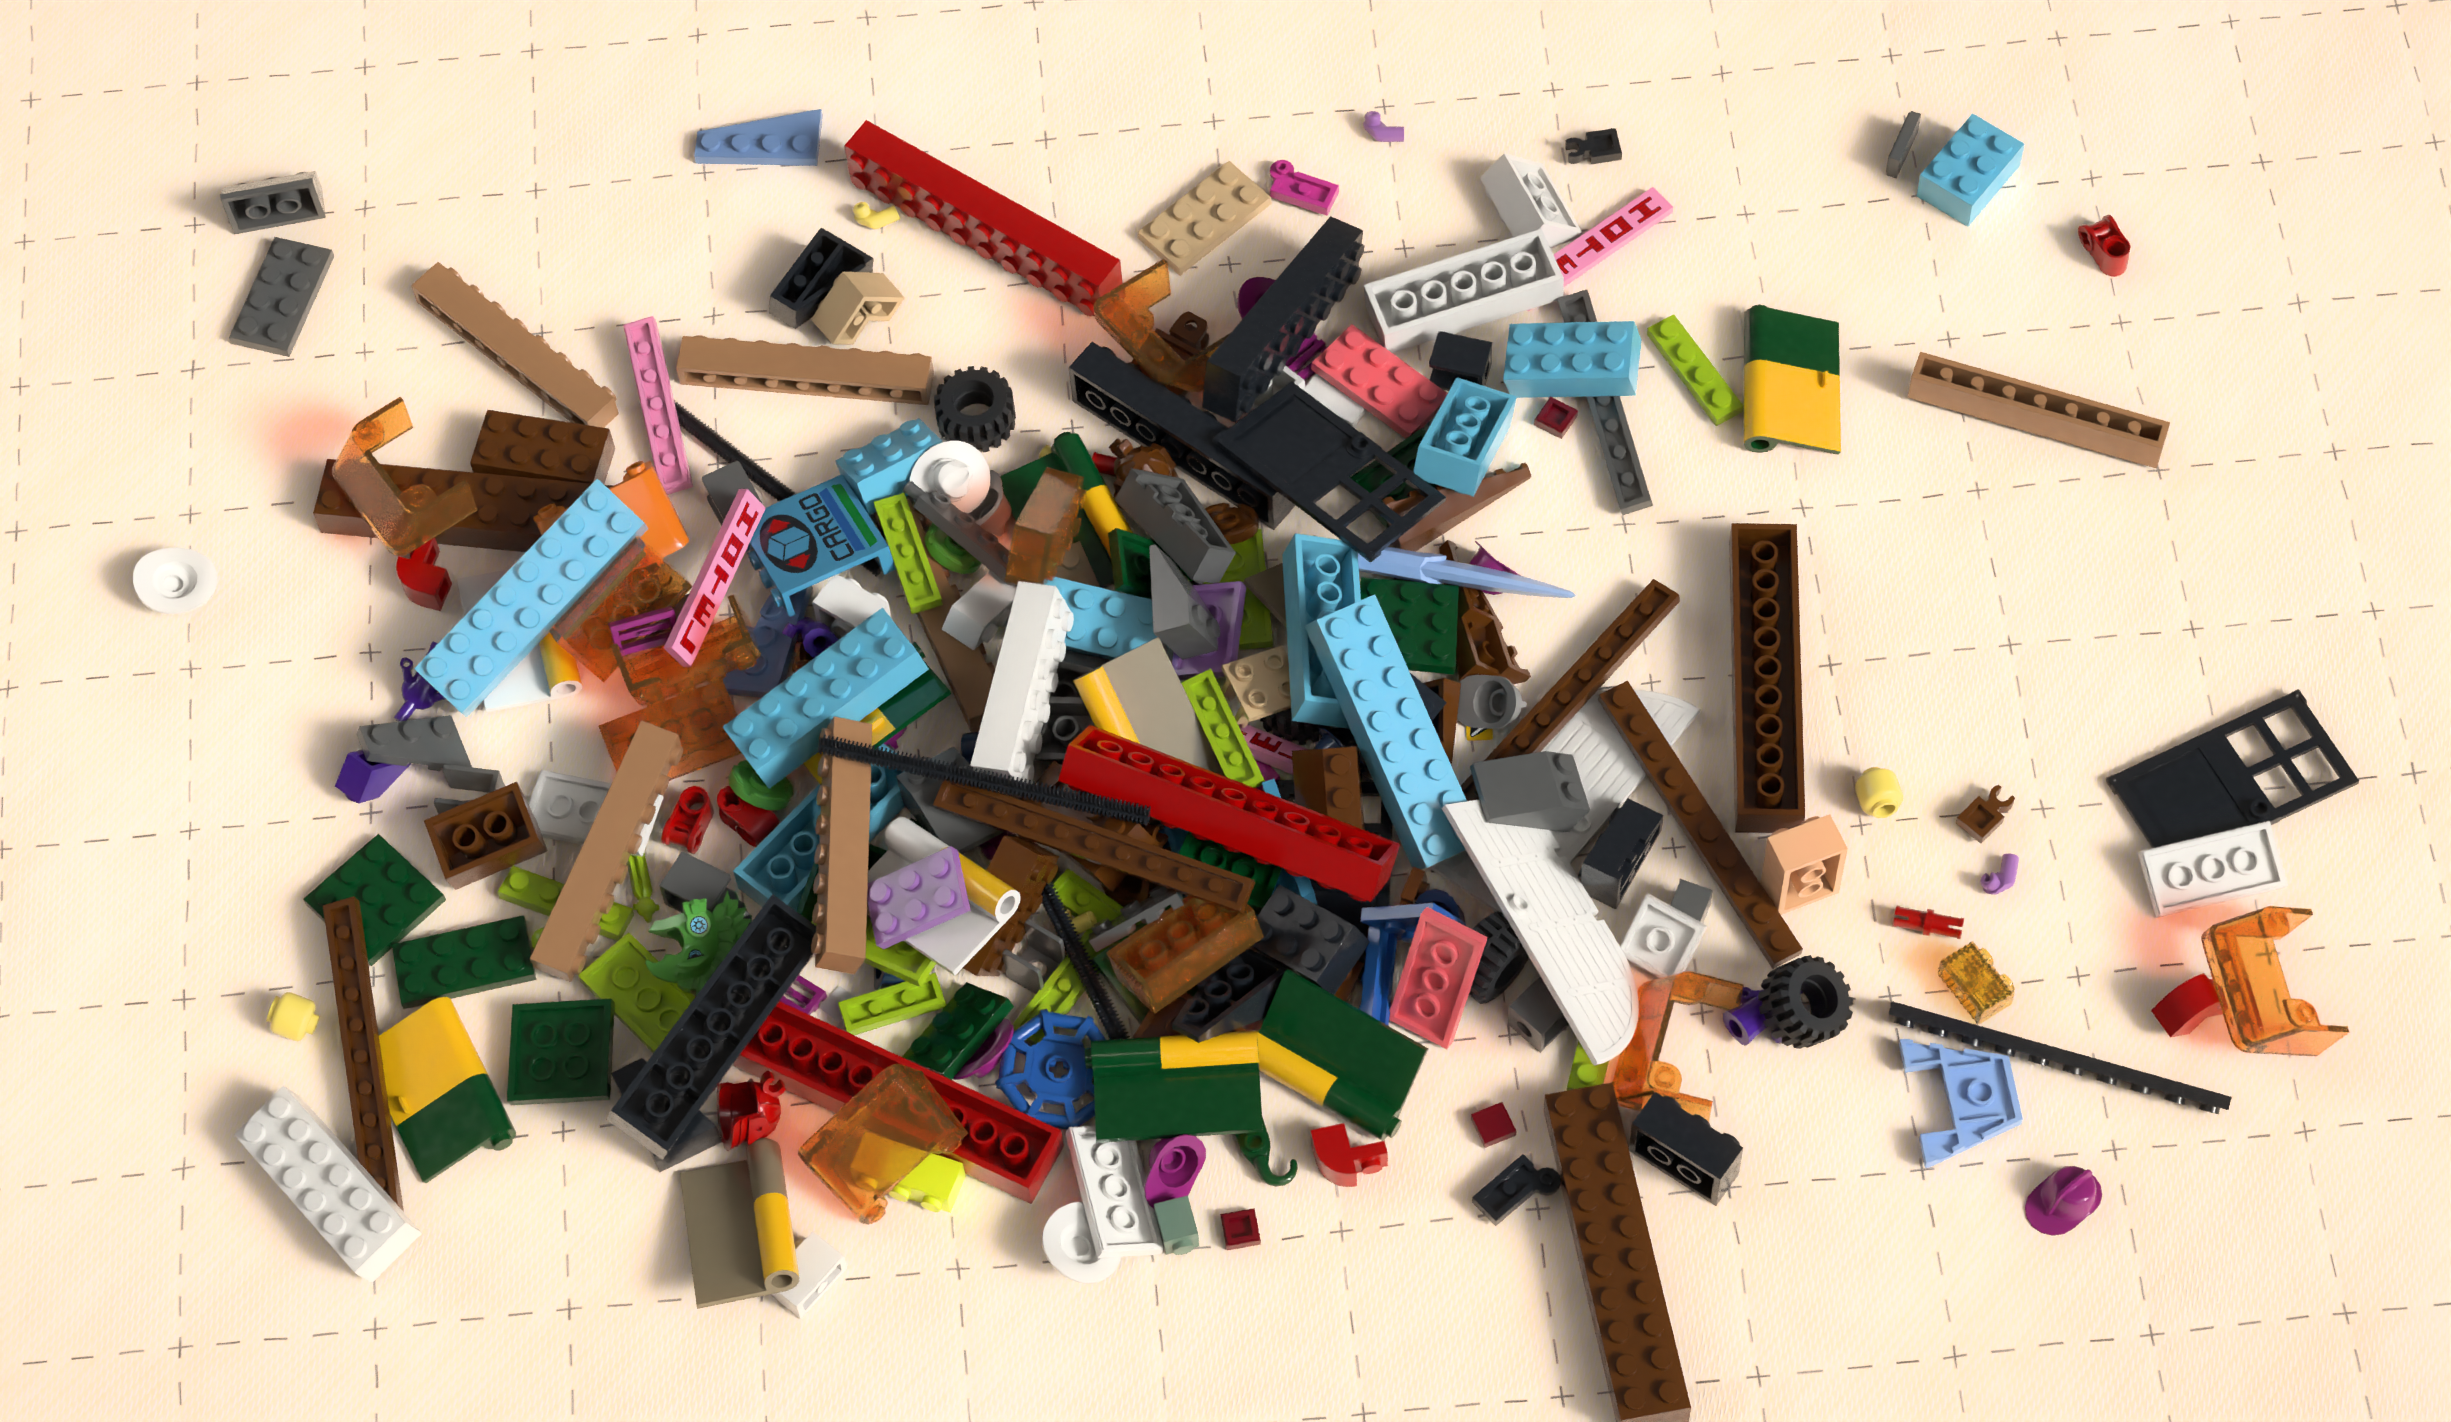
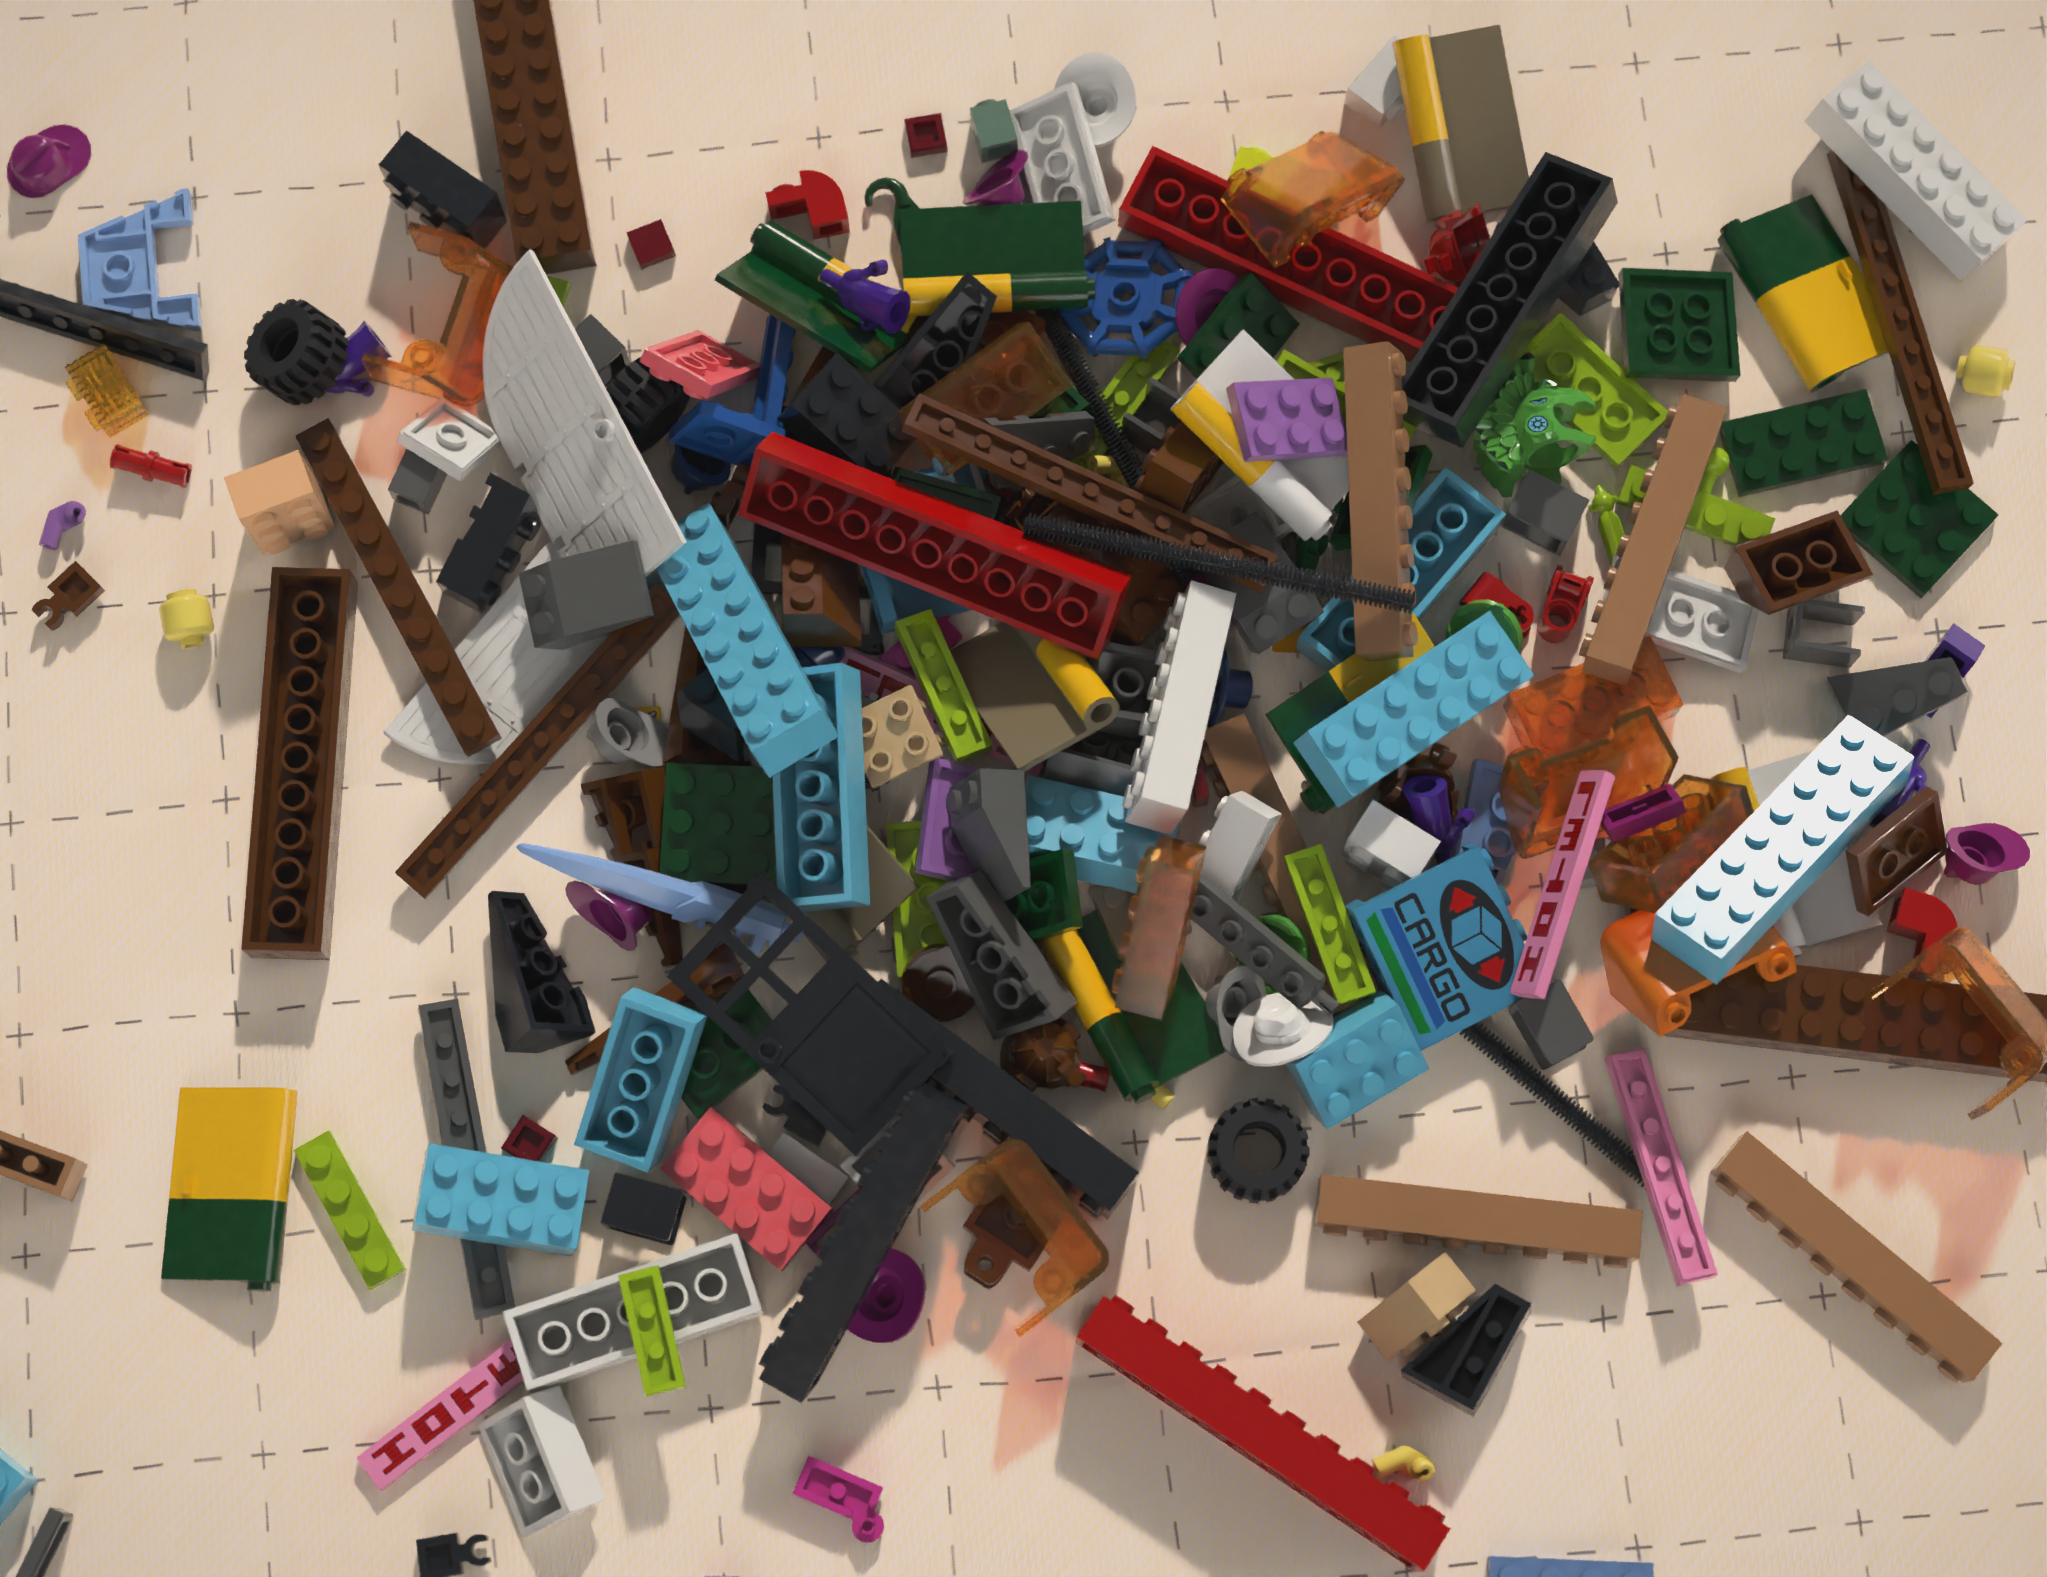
camera: 175 degrees right, 15 degrees up
(361, 628) = (1983, 851): none -> magenta piece
(437, 618) = (1896, 851): none -> reddish brown plate
(542, 448) = (1798, 1094): reddish brown brick -> none
(1204, 217) = (970, 1456): tan plate -> none
(1289, 1041) = (870, 300): none -> dark purple piece
(1446, 261) = (652, 1331): none -> lime plate
(1514, 1187) = (631, 170): black hinge -> none
(1559, 518) = (531, 992): none -> black wedge

